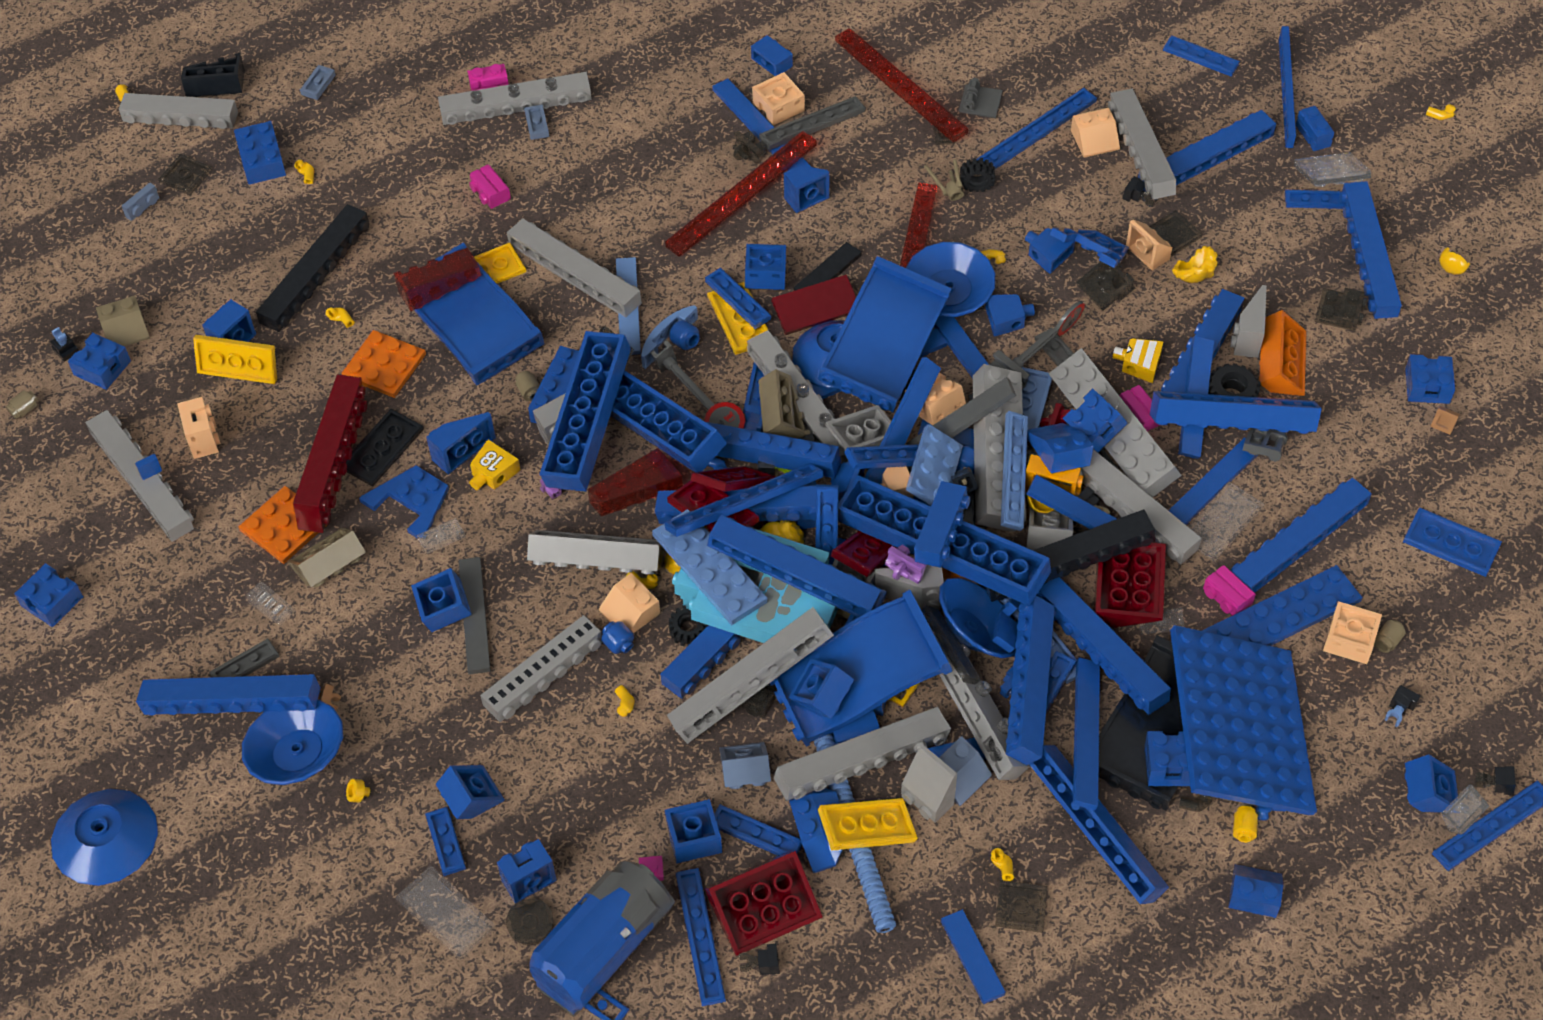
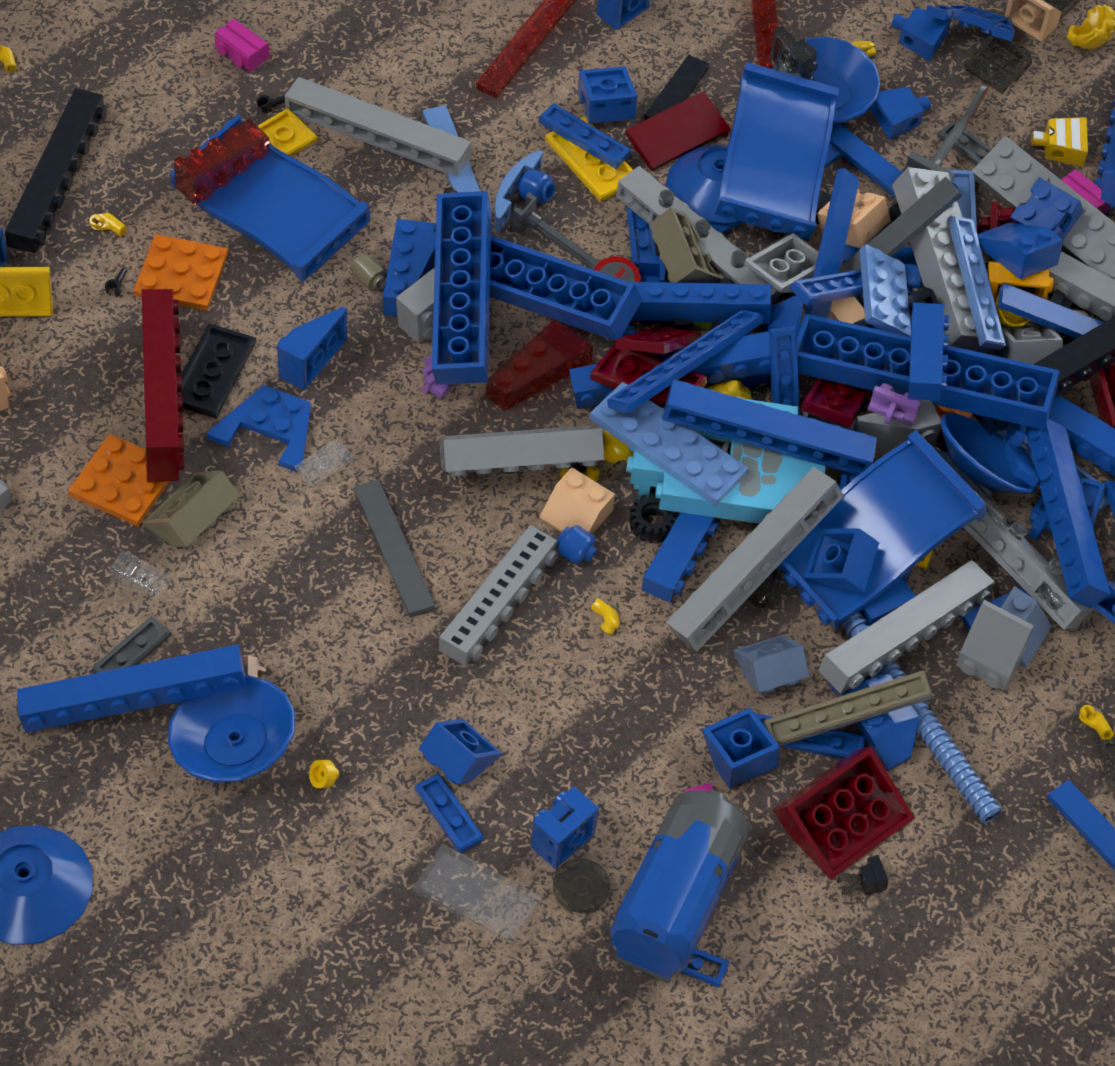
camera: 20 degrees left, 0 degrees up
(325, 365) = (115, 283): none -> black hand
(441, 600) = (353, 535): blue brick -> none
(493, 466) = (359, 372): yellow torso -> none
(494, 237) = (267, 103): none -> black hand
(700, 937) = (785, 867): blue tile -> none
(788, 815) = (849, 708): none -> dark tan tile
(867, 824) = (953, 704): yellow tile -> none
(921, 256) = (792, 56): none -> clear smoke plate

